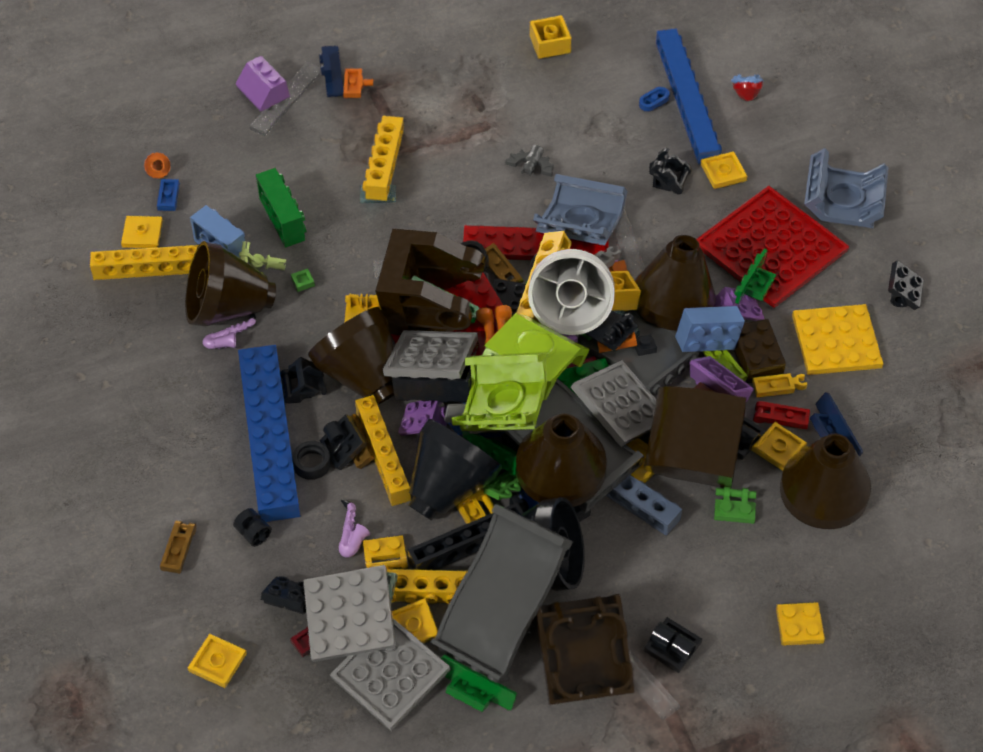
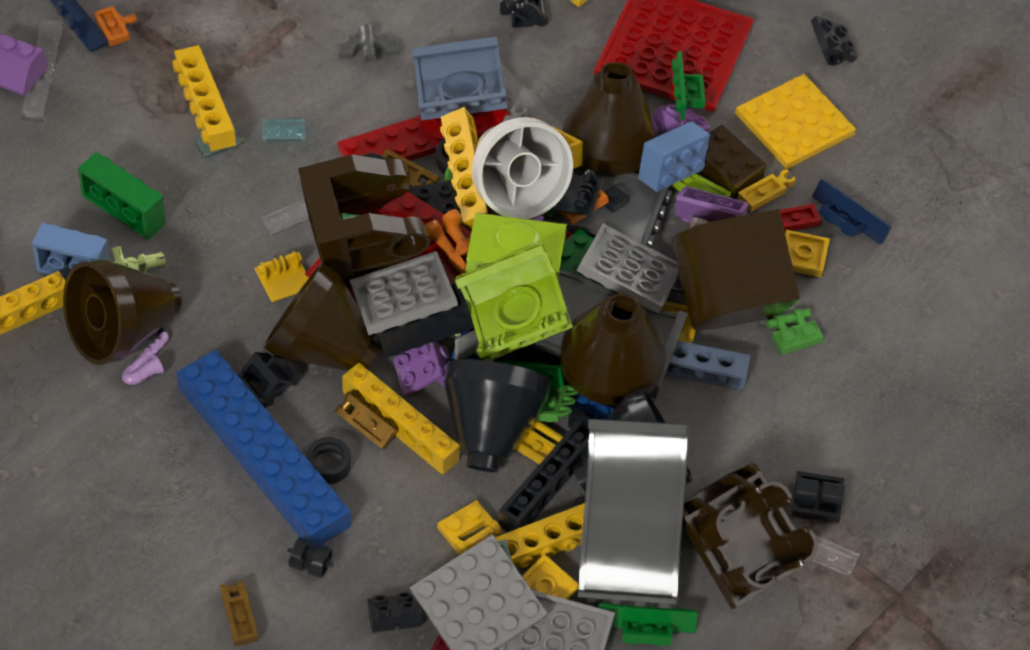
camera: 30 degrees left, 0 degrees up
(302, 280) = (194, 268): bright green plate -> none
(343, 441) = (354, 425): black plate -> none
(351, 539) = (424, 528): lavender piece -> none
(430, 202) = (283, 130): none -> clear light blue plate
(800, 624) = (925, 424): yellow plate -> none
(826, 484) = (873, 271): dark brown cone -> none

